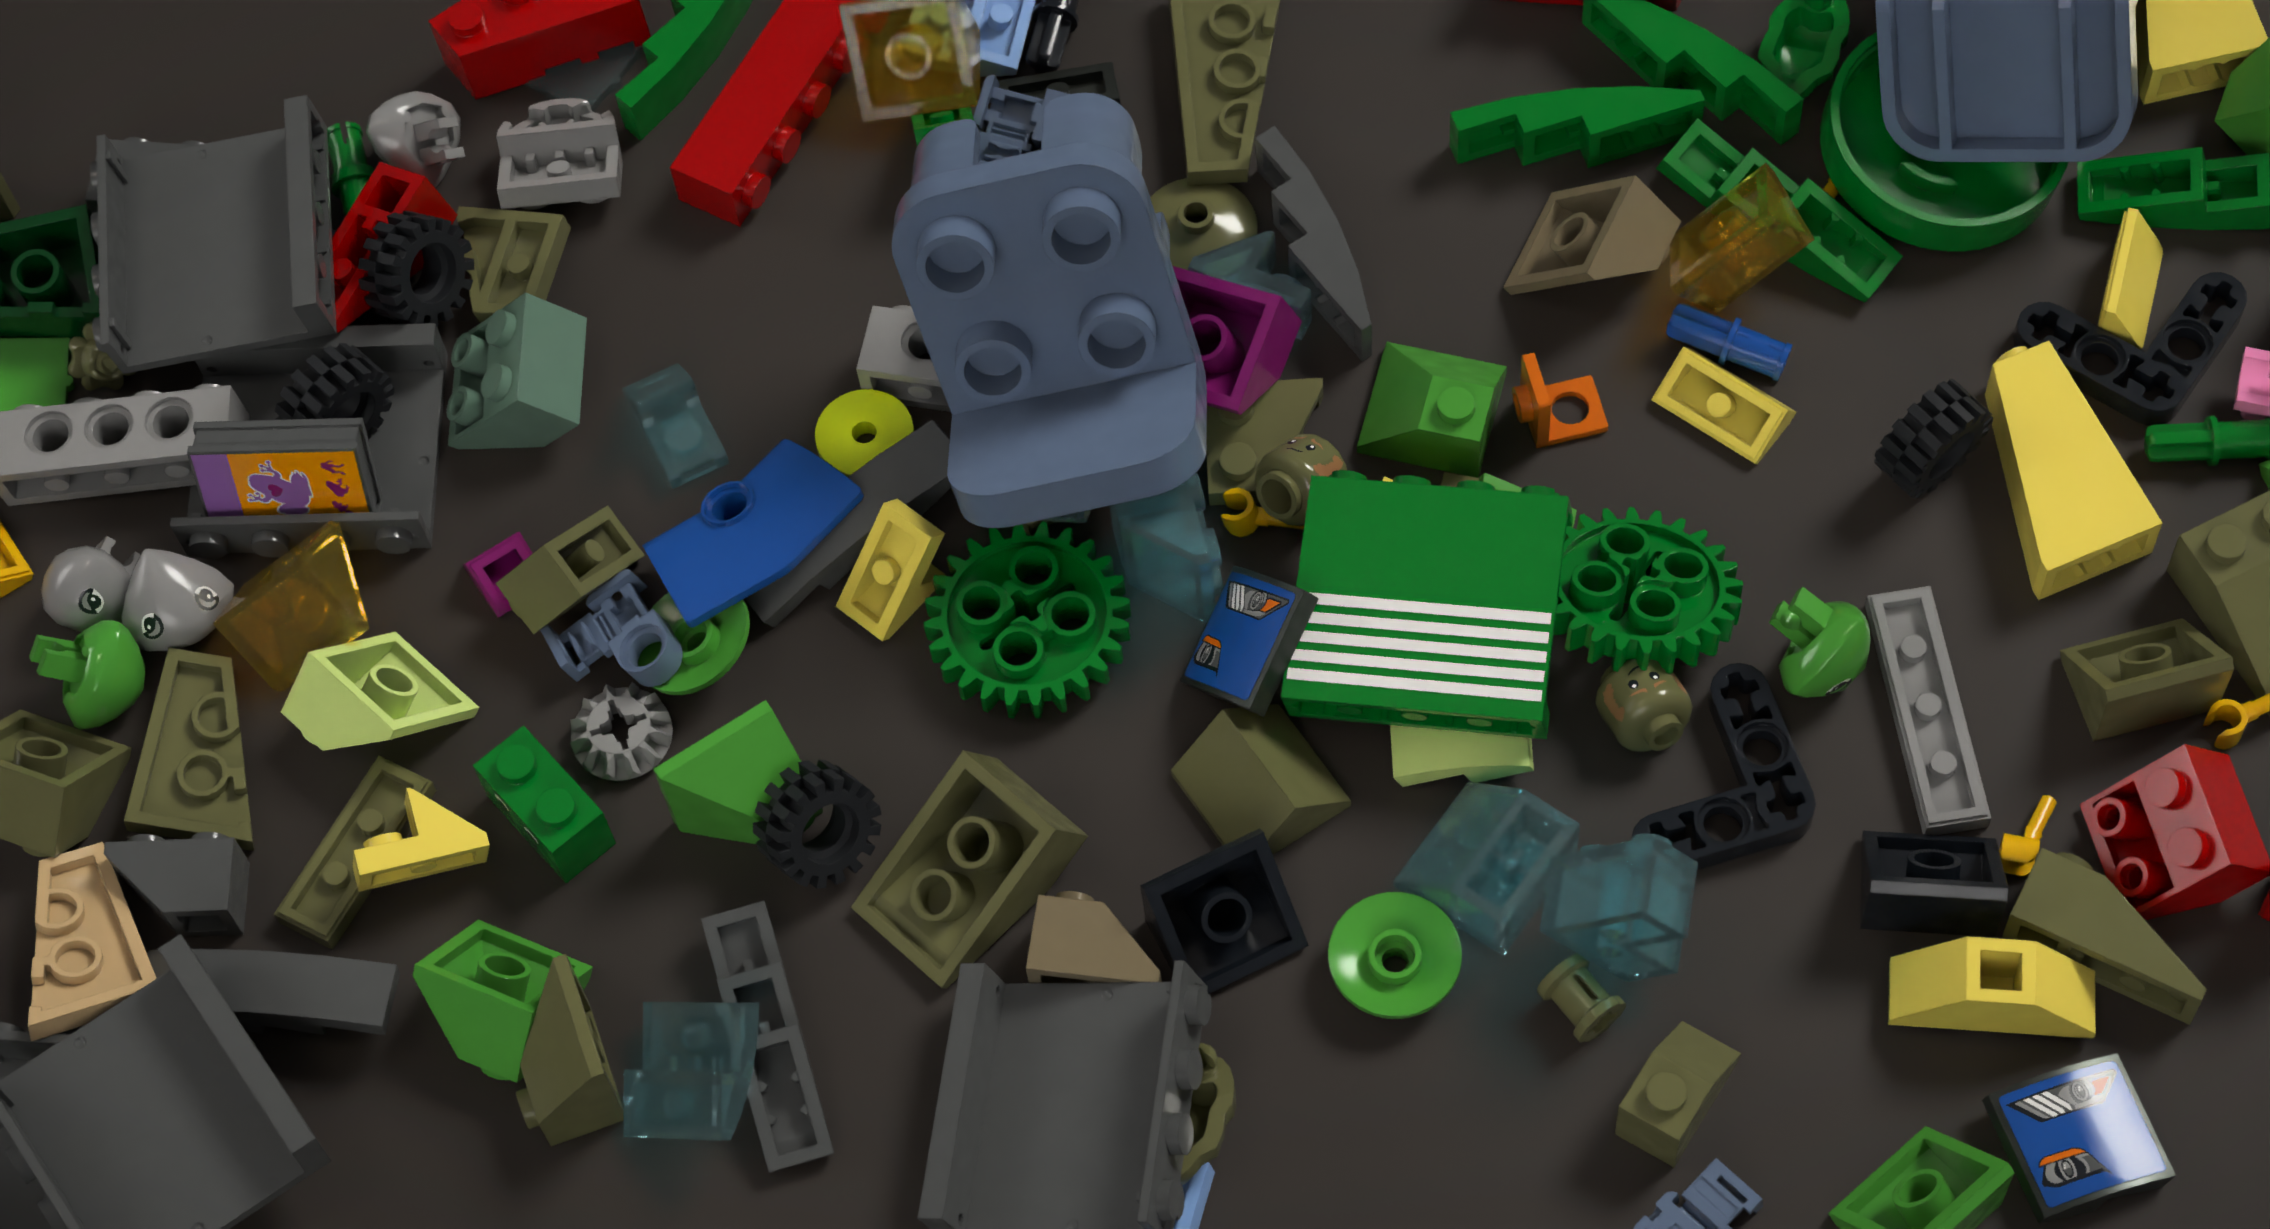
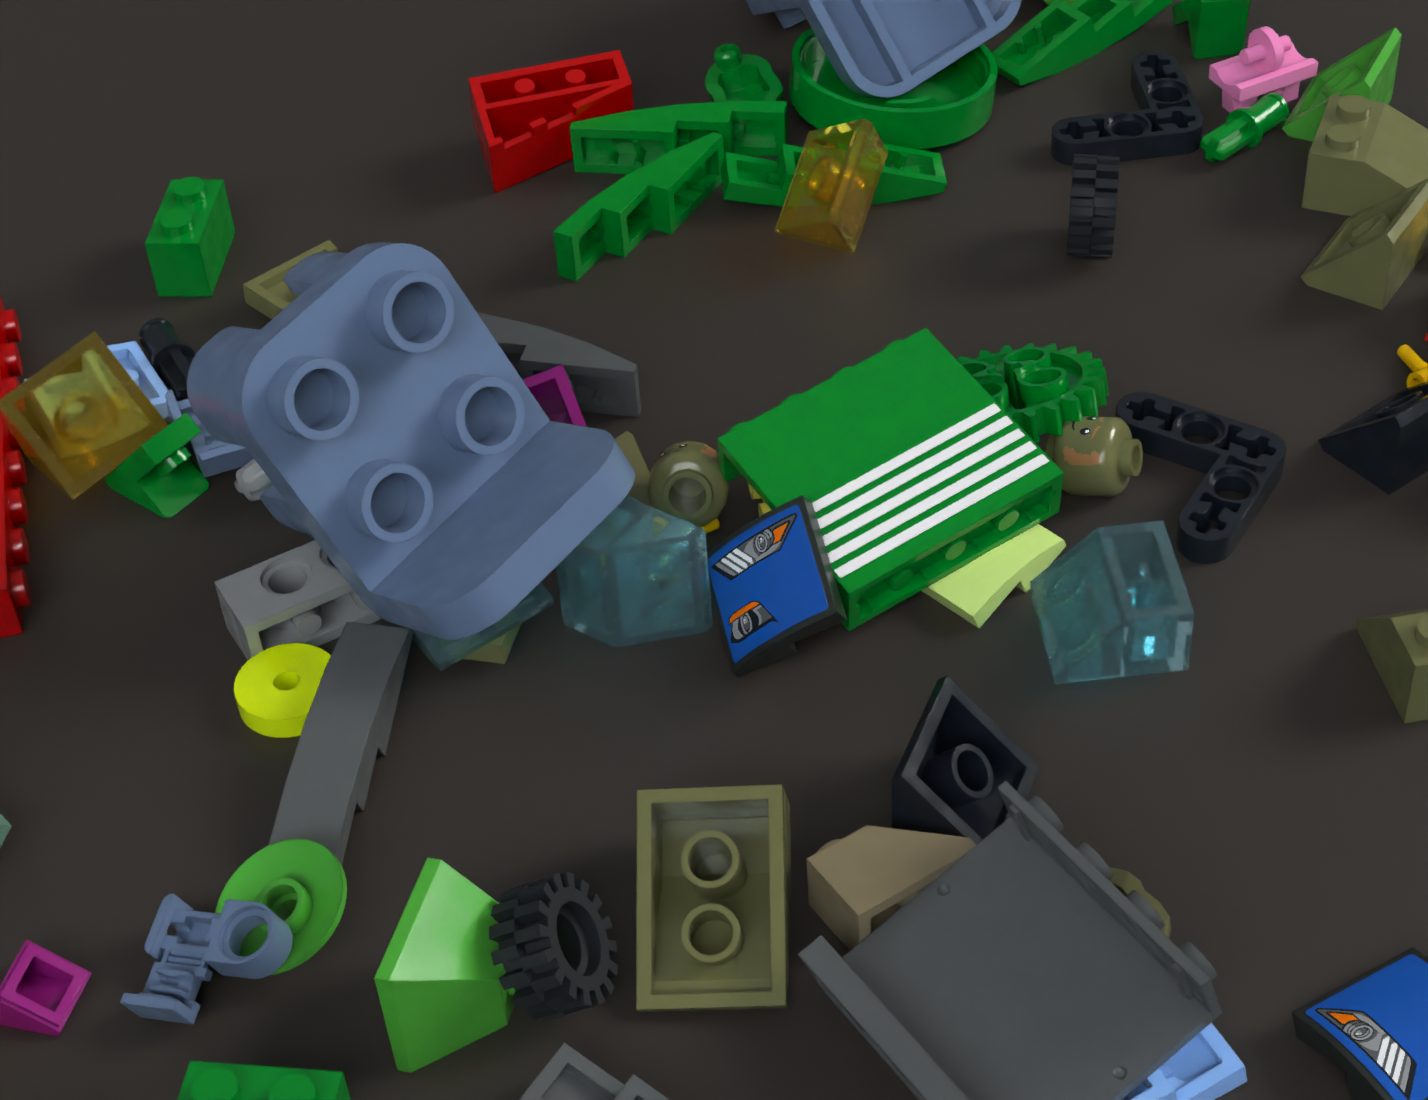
camera: 45 degrees left, 20 degrees down
(569, 569) = (104, 939): olive slope -> none
(646, 741) = (309, 1016): light grey gear -> none
(676, 425) = (100, 785): clear light blue slope -> none
(751, 531) = (258, 795): blue panel -> none
(892, 570) = (416, 743): light yellow slope -> none
(1027, 619) = (610, 721): green gear -> none
(1258, 775) = (866, 693): olive slope -> none
(1399, 927) = (1120, 714): bright green dish -> none
(1432, 409) = (726, 393): bright green slope -> none
(1535, 400) = (805, 345): orange bracket -> none
(1581, 998) = (1280, 647): olive bush -> none
(1594, 236) = (728, 247): dark tan slope -> none
(1622, 905) = (1256, 537): clear light blue brick -> none
(1722, 405) = (923, 285): light yellow slope -> none
(1728, 340) = (888, 250): blue axle -> none
(1825, 647) = (1170, 345): bright green piece -> none
(1927, 711) = (1269, 354): light grey tile -> none
(2063, 474) = (1193, 188): light yellow slope -> none
(2131, 280) = (1084, 84): light yellow slope -> none

